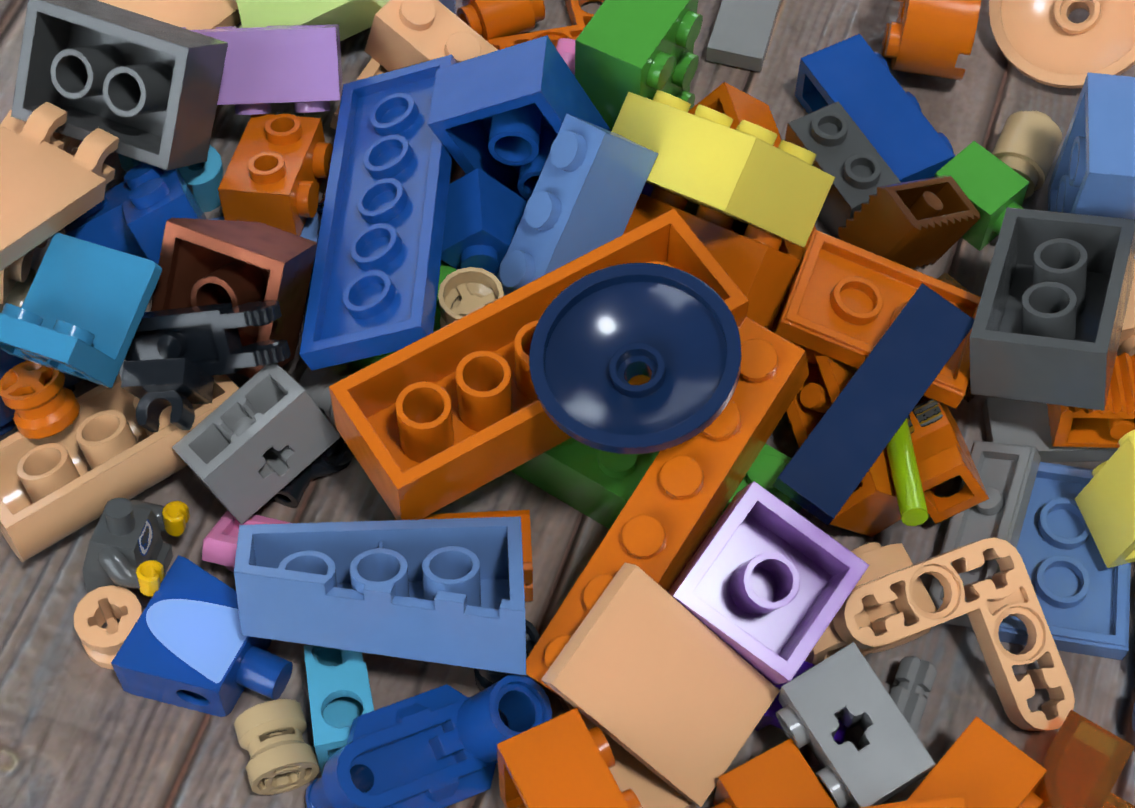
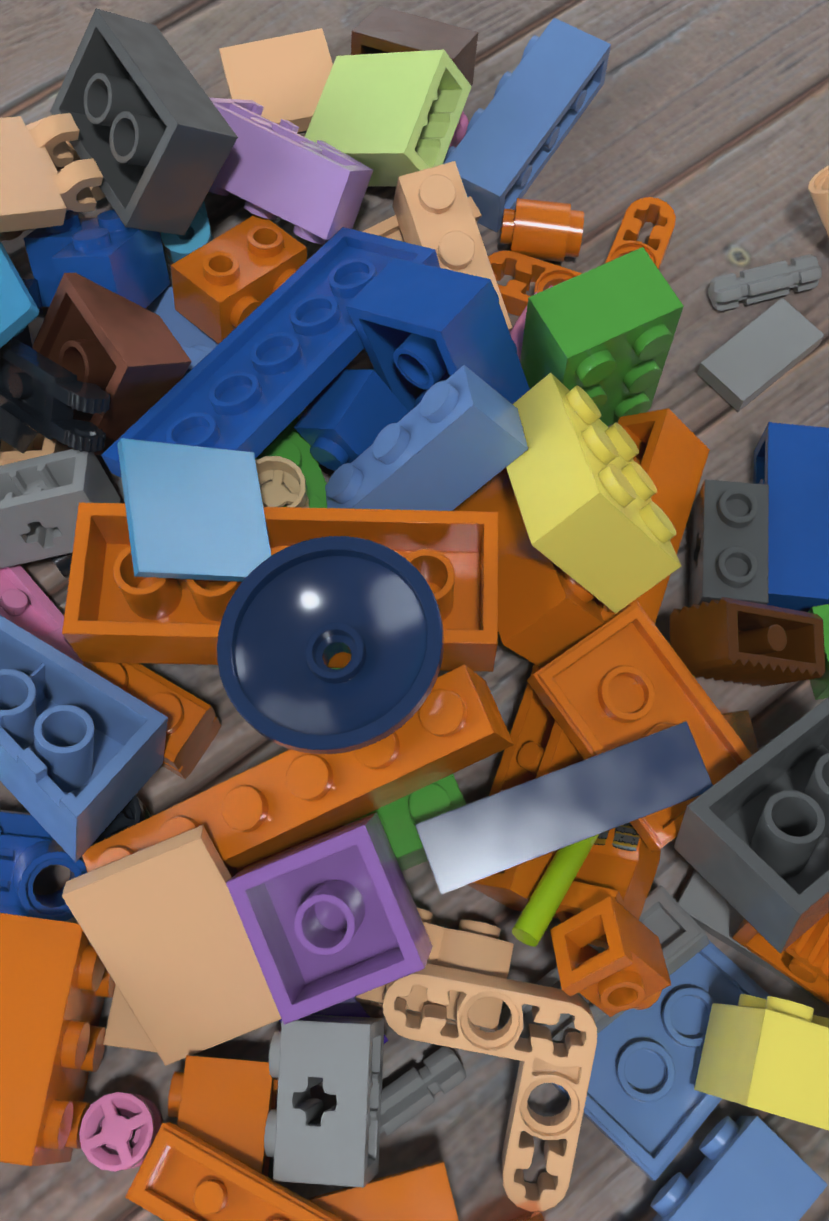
camera: 35 degrees right, 10 degrees up
(446, 327) = (192, 511): none -> dark azure piece
(1004, 501) = (623, 975): none -> orange brick

